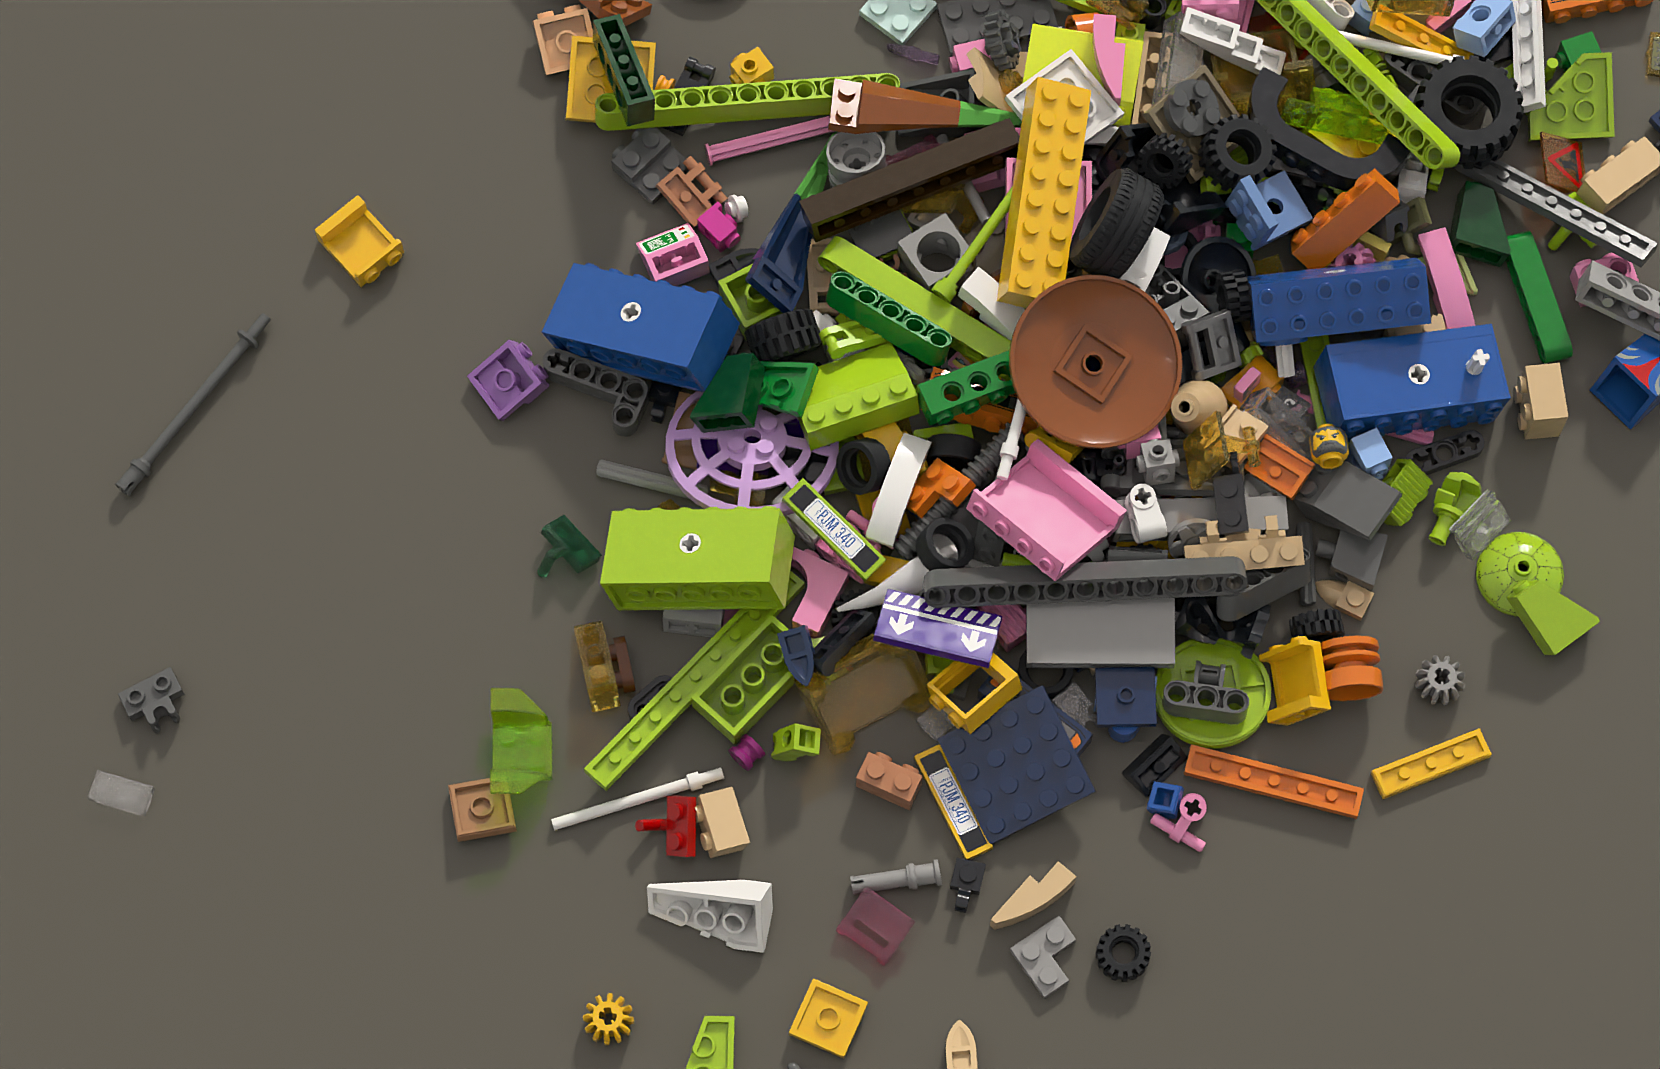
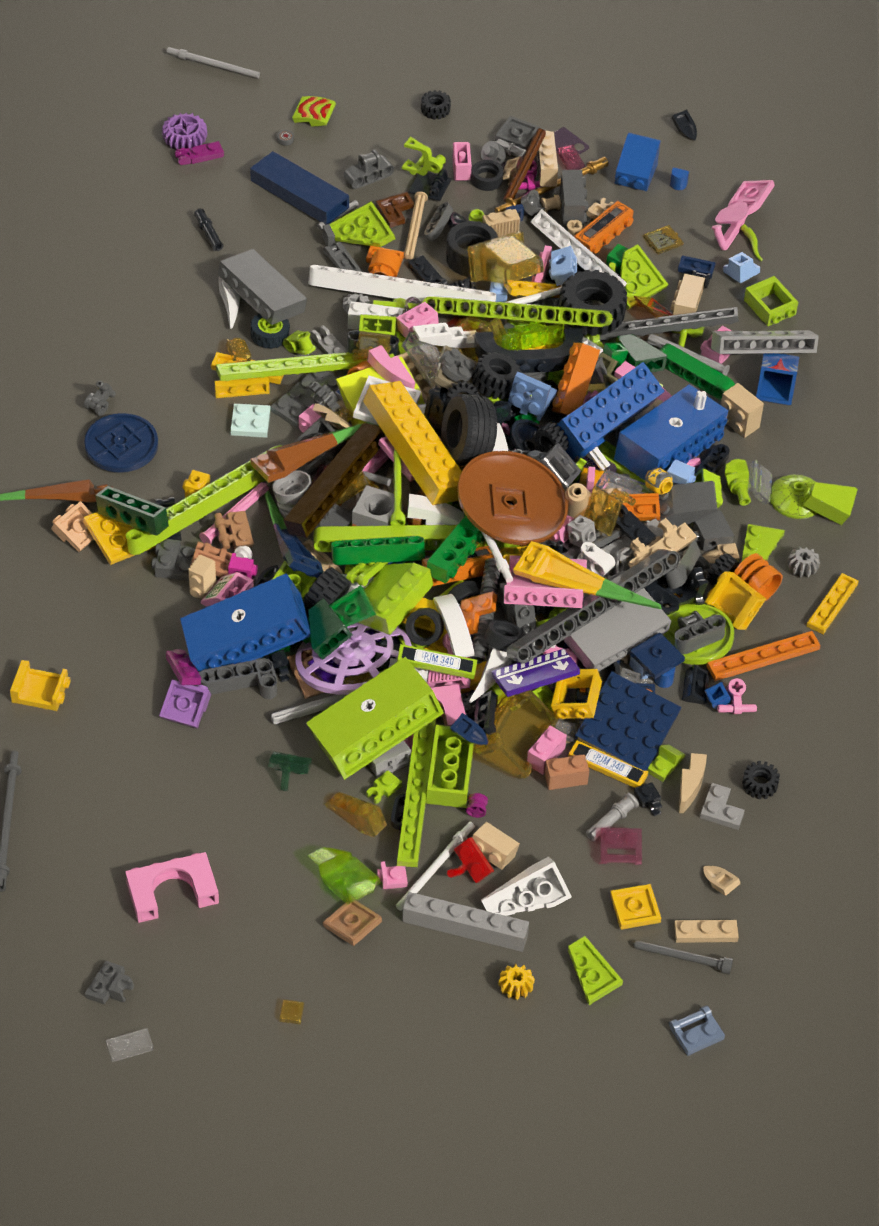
camera: 40 degrees left, 20 degrees down
(284, 592) = (191, 869): none -> bright pink arch
(329, 876) = (292, 1012): none -> clear yellow tile
(532, 342) = (183, 667): none -> magenta plate
(572, 779) = (392, 876): none -> bright pink bracket
(610, 900) = (465, 921): none -> light grey brick
(619, 653) = (365, 795): reddish brown plate -> none
(653, 213) = (201, 576): none -> tan brick
(665, 650) = (384, 785): none -> lime plate
(757, 168) = (239, 530): none -> medium nougat plate
(795, 742) = (500, 781): lime leg -> none
(890, 732) = (548, 746): none -> bright pink brick
(914, 53) = (277, 435): clear purple piece -> none
(1029, 846) = (665, 762): none -> lime slope
(1064, 498) = (551, 568): none -> yellow plate
(1405, 615) = (761, 540): none -> lime wing
(1443, 206) = (617, 352): none -> green brick
(1553, 268) = (660, 342): none -> light grey axle

